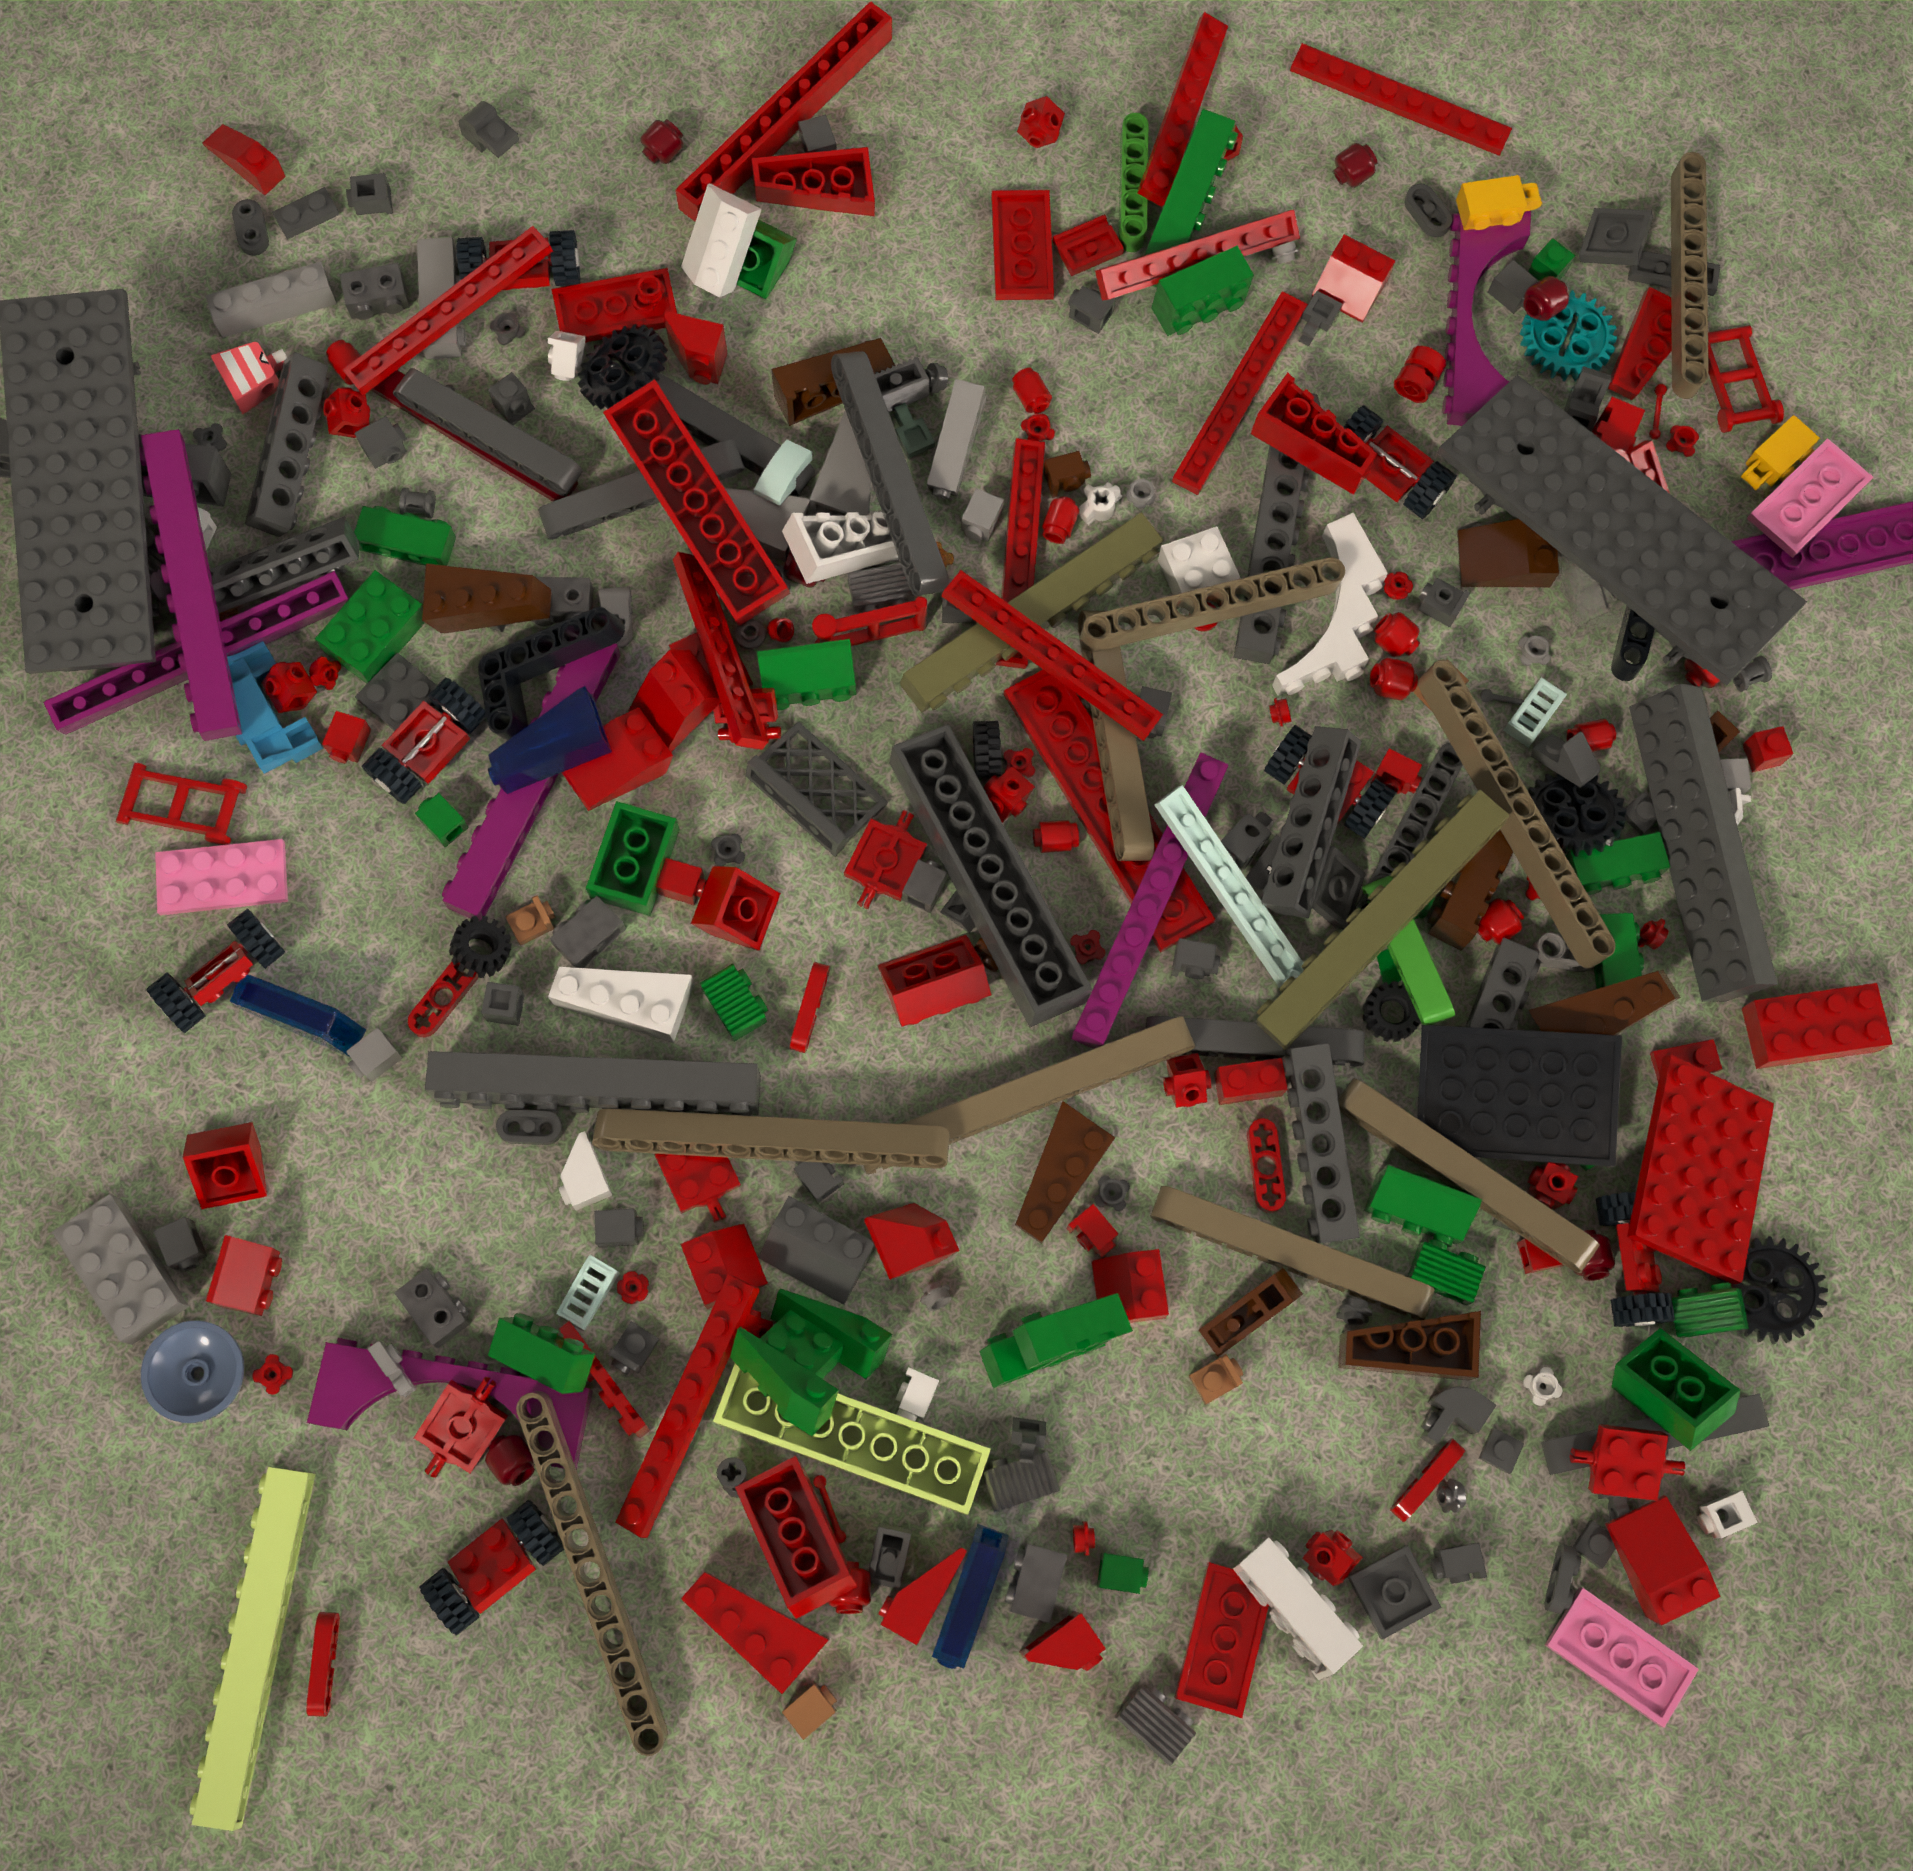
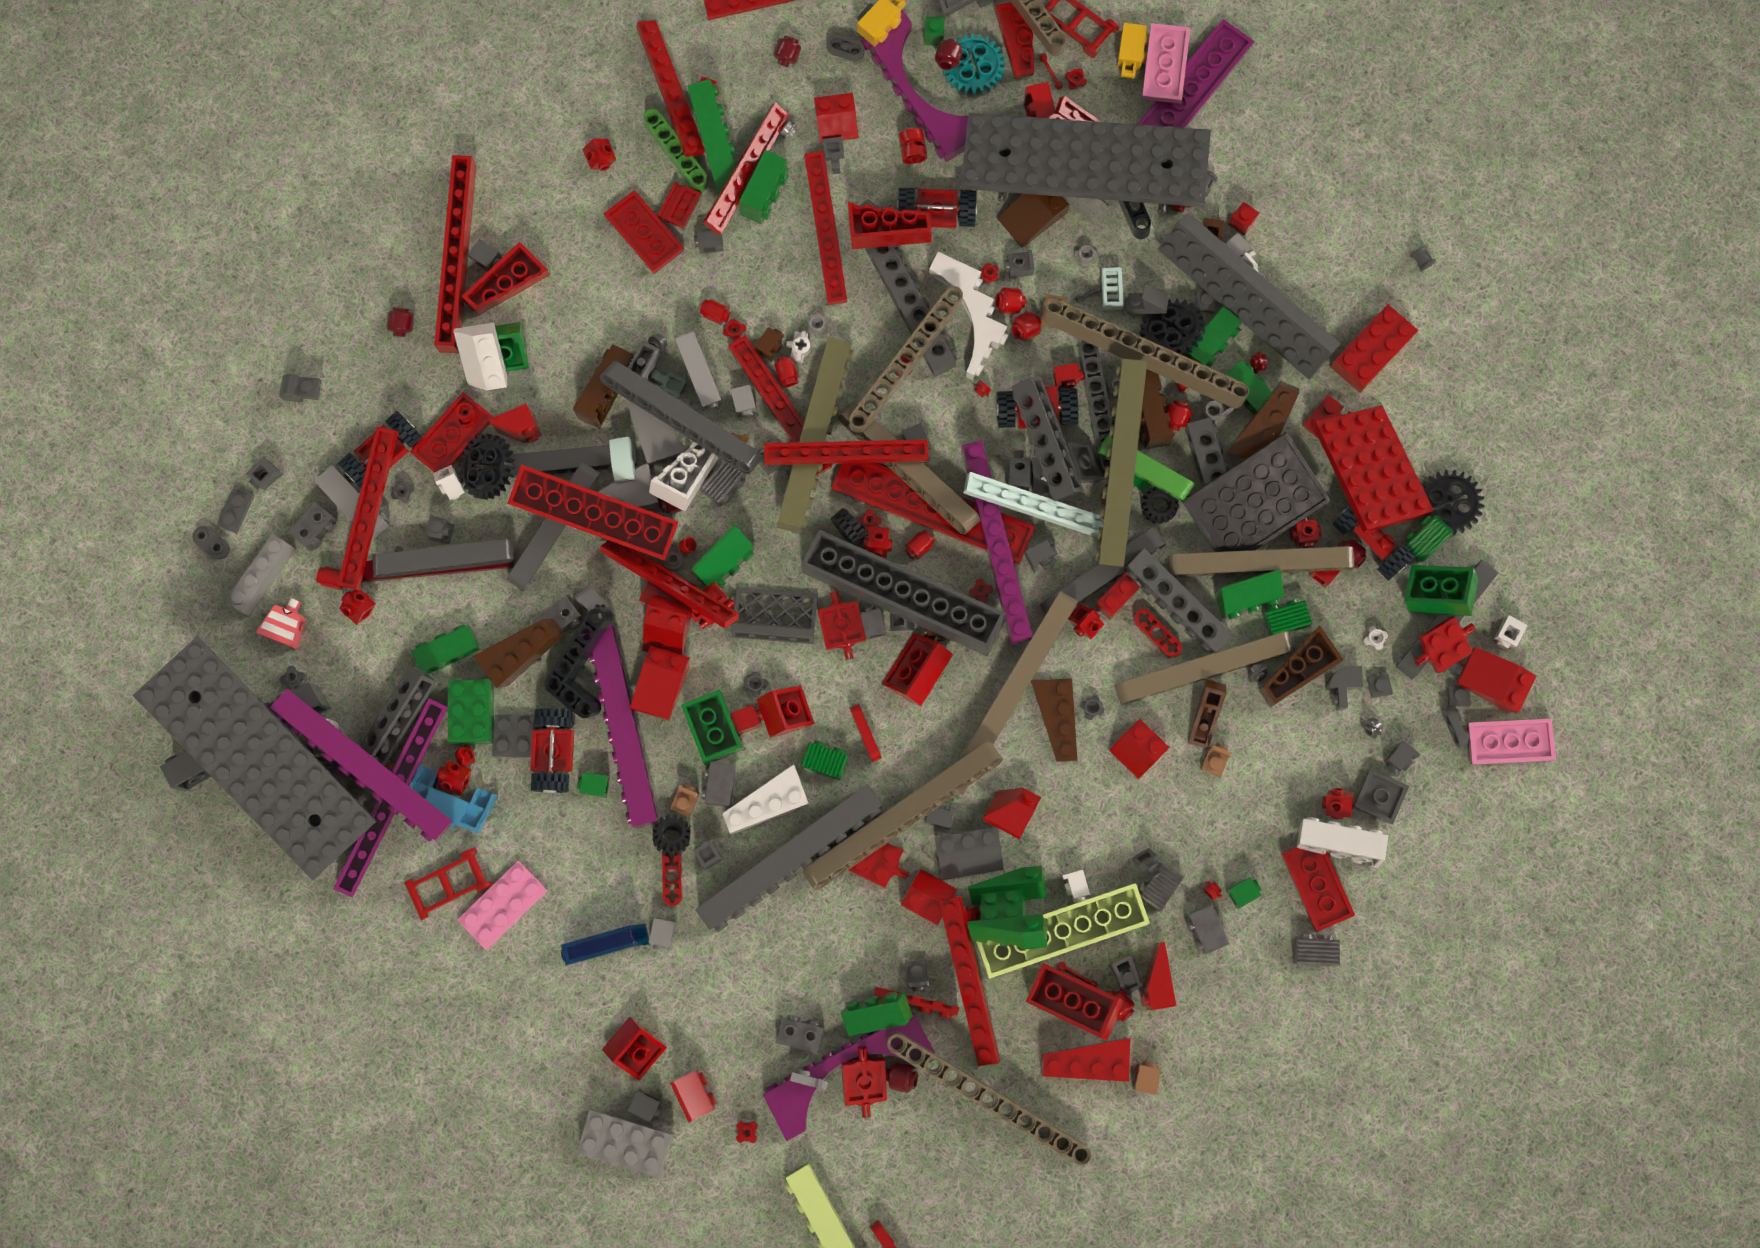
camera: 30 degrees left, 5 degrees up
(170, 1369) = (691, 1165): sand blue dish -> none
(216, 974) = (546, 955): plate -> none
(246, 158) = (174, 505): red slope -> none
(262, 510) = (339, 659): dark grey brick -> none
(346, 737) = (507, 781): red brick -> none
(382, 442) = (389, 607): dark grey brick -> none
(417, 502) = (436, 625): dark grey bush -> none
(491, 1567) = (937, 1136): plate -> none
(530, 1127) = (773, 907): dark grey plate -> none
(551, 744) = (624, 699): clear blue slope -> none
(583, 1176) = (821, 909): white slope -> none
(604, 1287) = (870, 947): light aqua slope -> none
(618, 1227) = (860, 921): dark grey brick -> none
(639, 1293) = (892, 939): red plate -> none
(727, 1472) = (1013, 998): dark grey bush -> none
(826, 626) = (719, 526): red piece -> none
(936, 1296) = (1046, 829): light grey plate -> none
(970, 1597) = (1181, 961): clear blue slope -> none
(1054, 1339) = (1125, 805): green wedge -> none
(1067, 1645) = (1246, 948): red slope -> none
(1094, 1231) = (1099, 734): red brick -> none
(1197, 562) = (880, 342): white brick -> none
(1431, 1477) = (1356, 723): red beam -> none
(1511, 286) = (923, 58): dark grey brick -> none
(1587, 396) = (1010, 97): dark grey brick -> none
(1598, 733) = (1152, 275): red brick -> none

